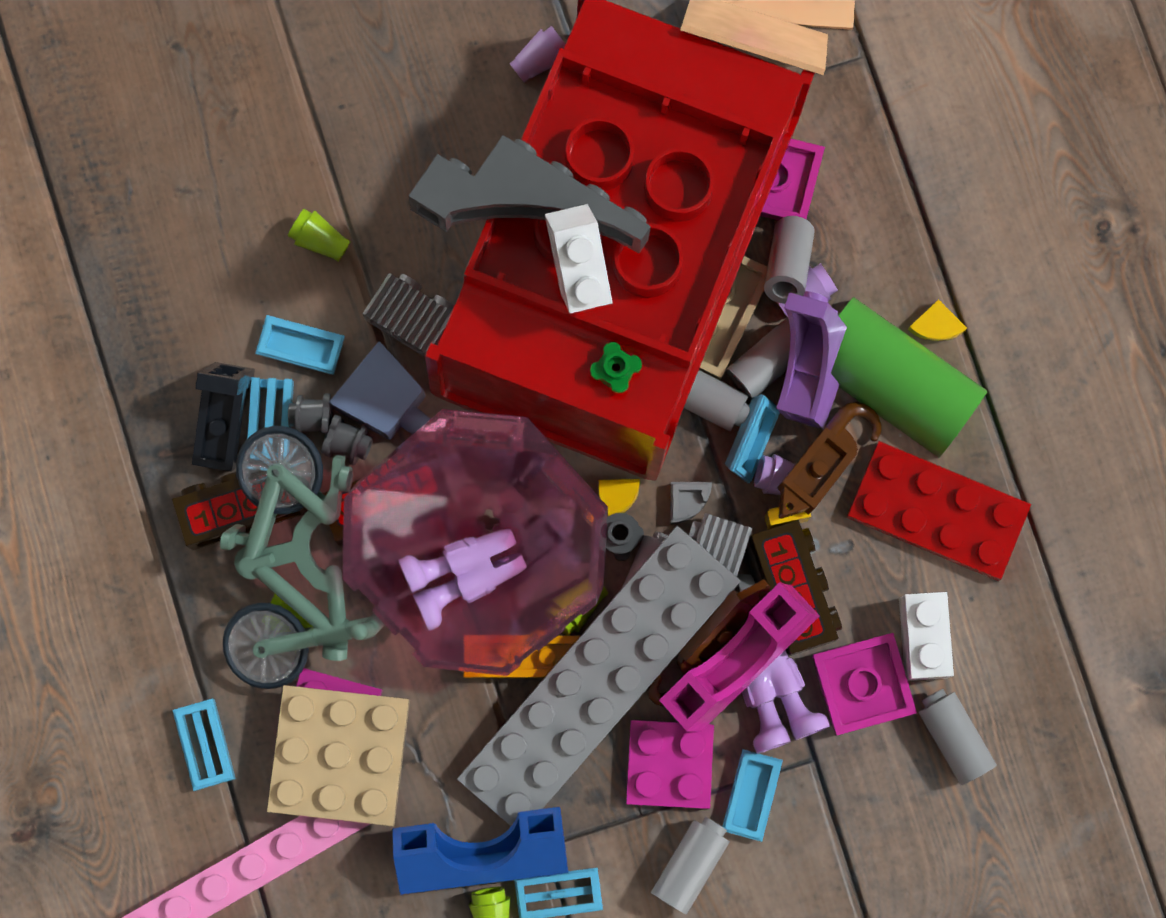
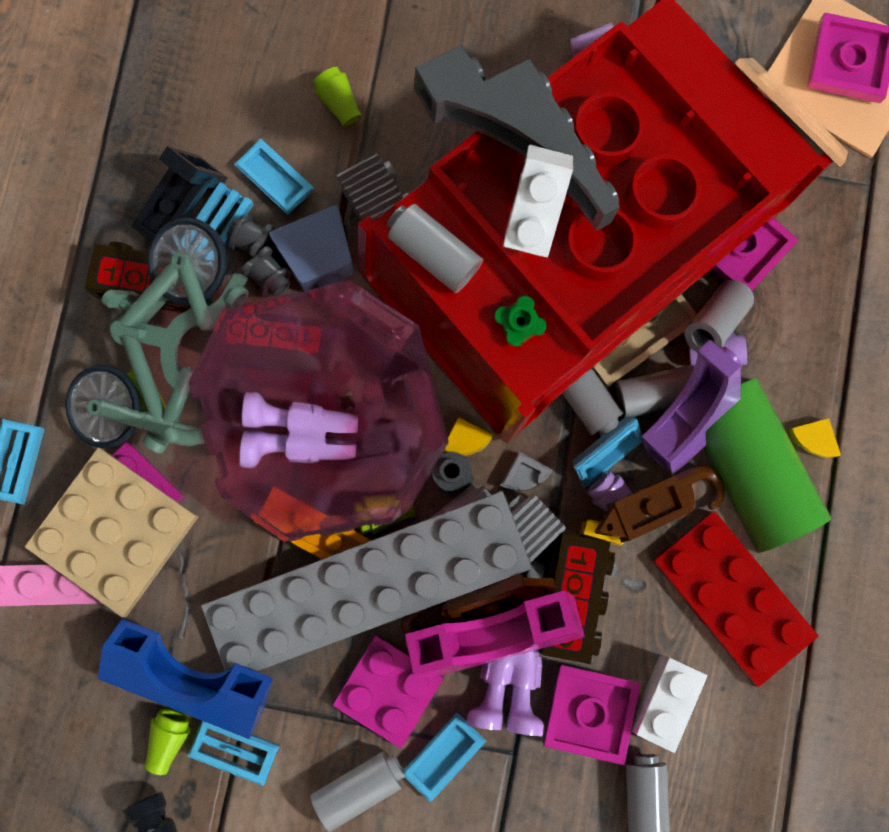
camera: 25 degrees right, 0 degrees up
(505, 342) = (433, 247): none -> light grey brick

